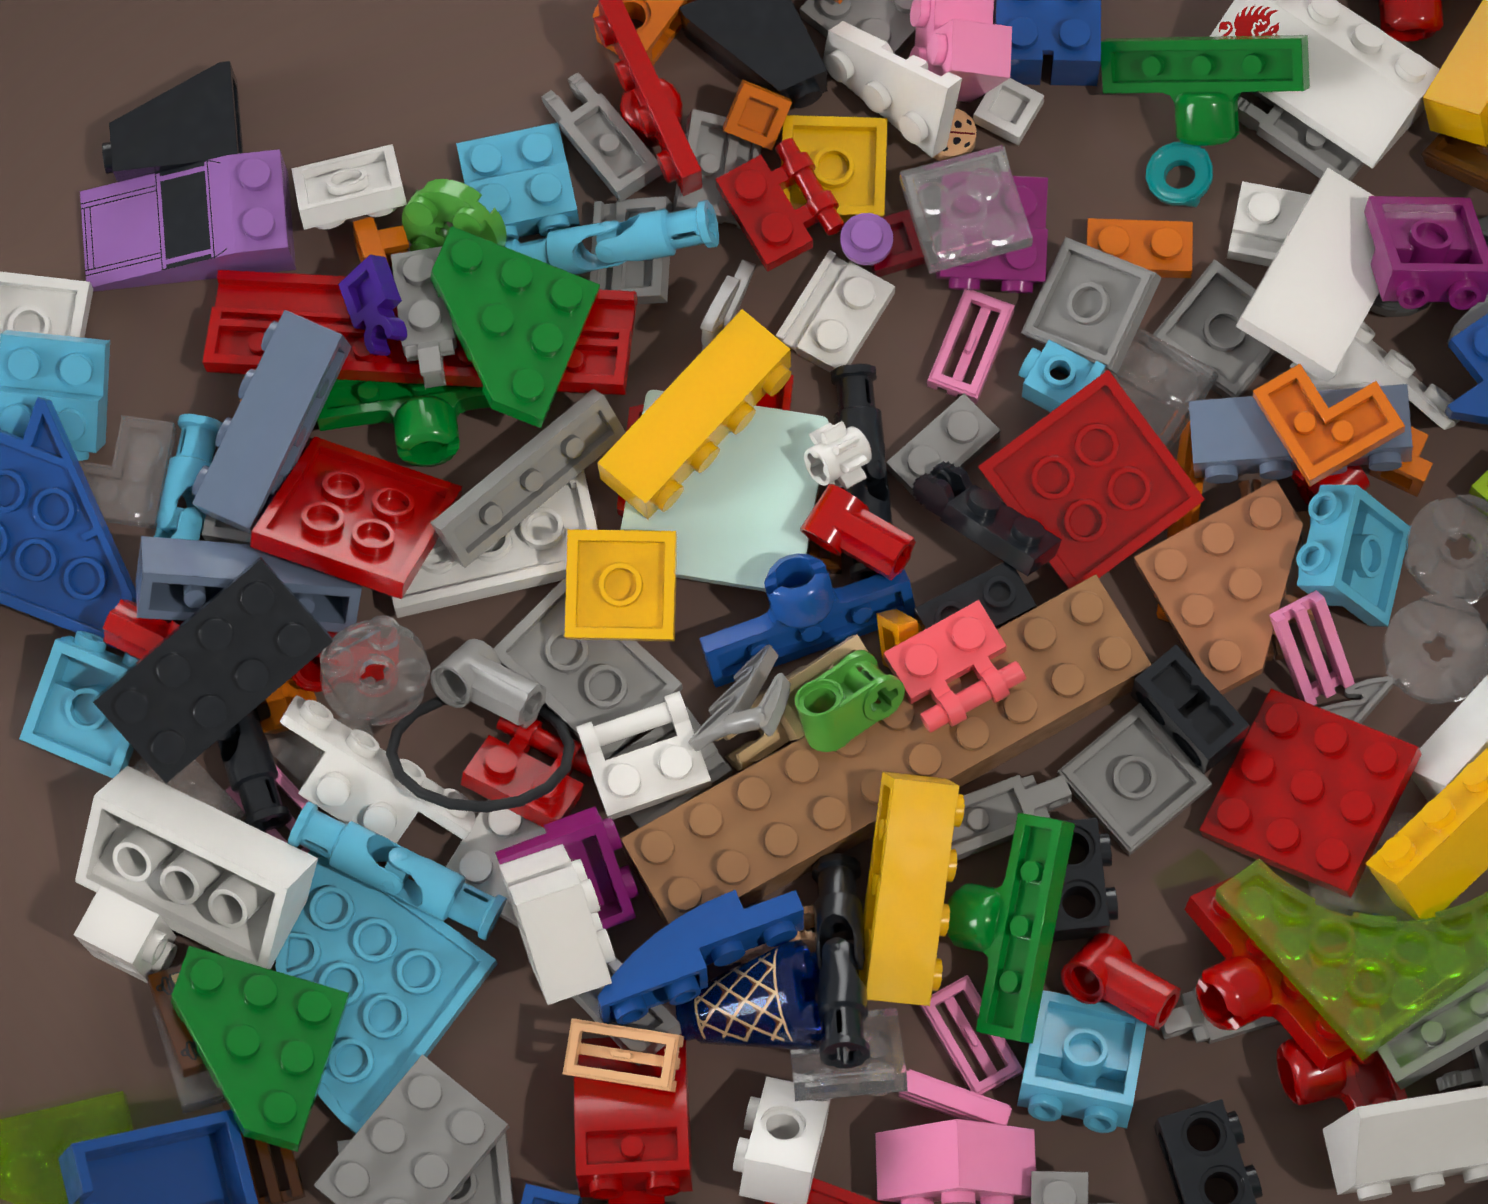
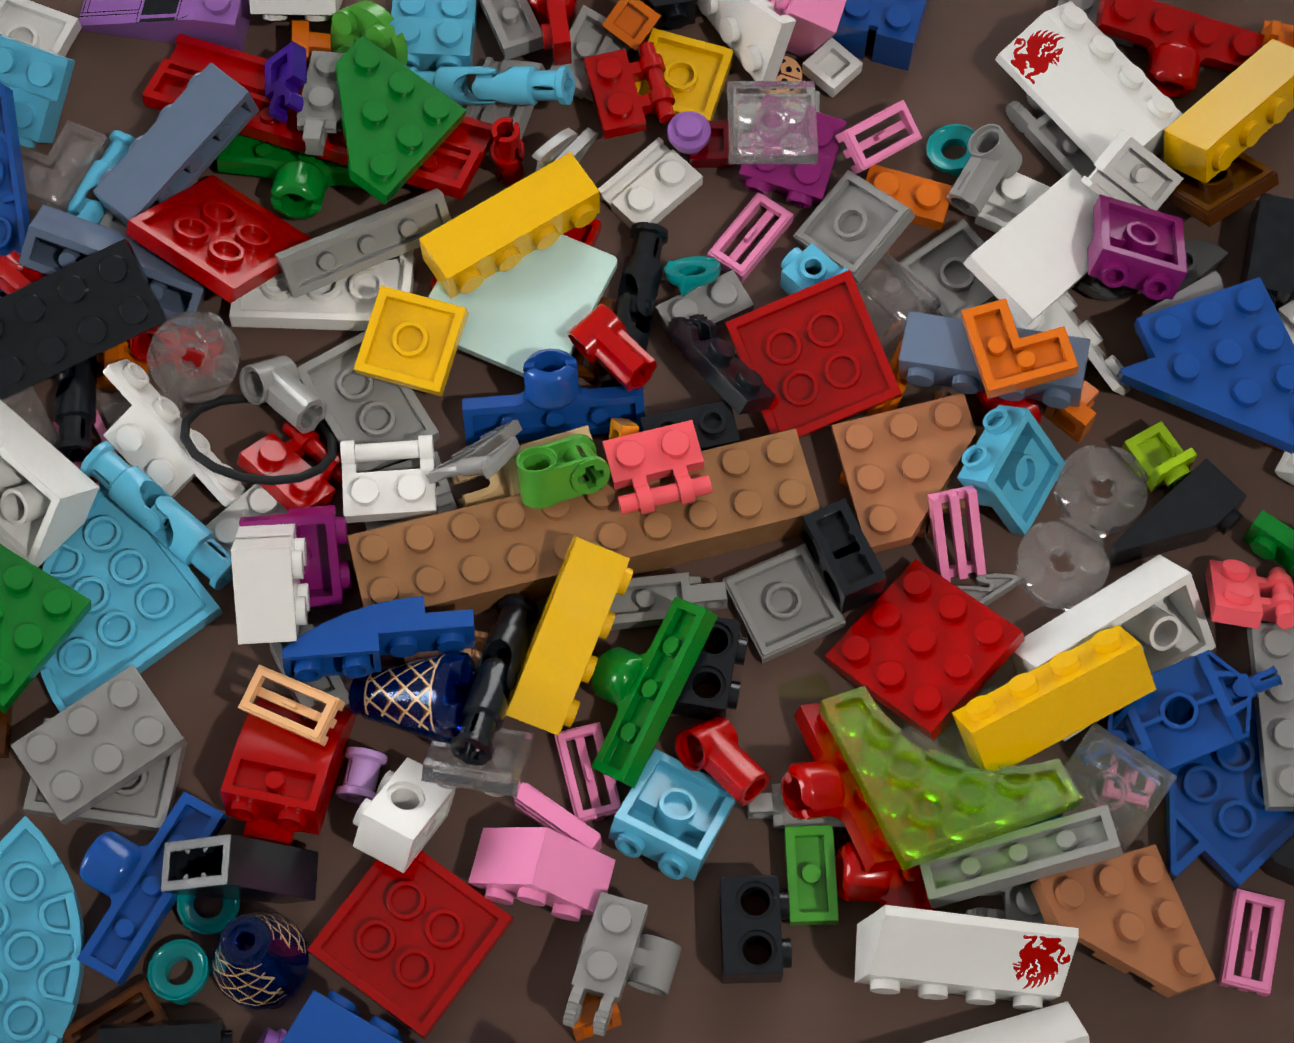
camera: 10 degrees right, 5 degrees down
(661, 320) = (507, 150): none -> red pin
(718, 1110) = (361, 774): none -> lavender bush
(837, 455) = (614, 284): white gear -> none
(913, 399) = (692, 272): none -> teal piece
(1067, 208) = (856, 149): none -> bright pink tile
(1205, 76) = (994, 74): green plate -> none
(1229, 183) = (991, 161): none -> light grey piece
(1254, 1085) = (811, 875): none -> bright green plate
(1400, 161) = (1132, 174): none -> white plate

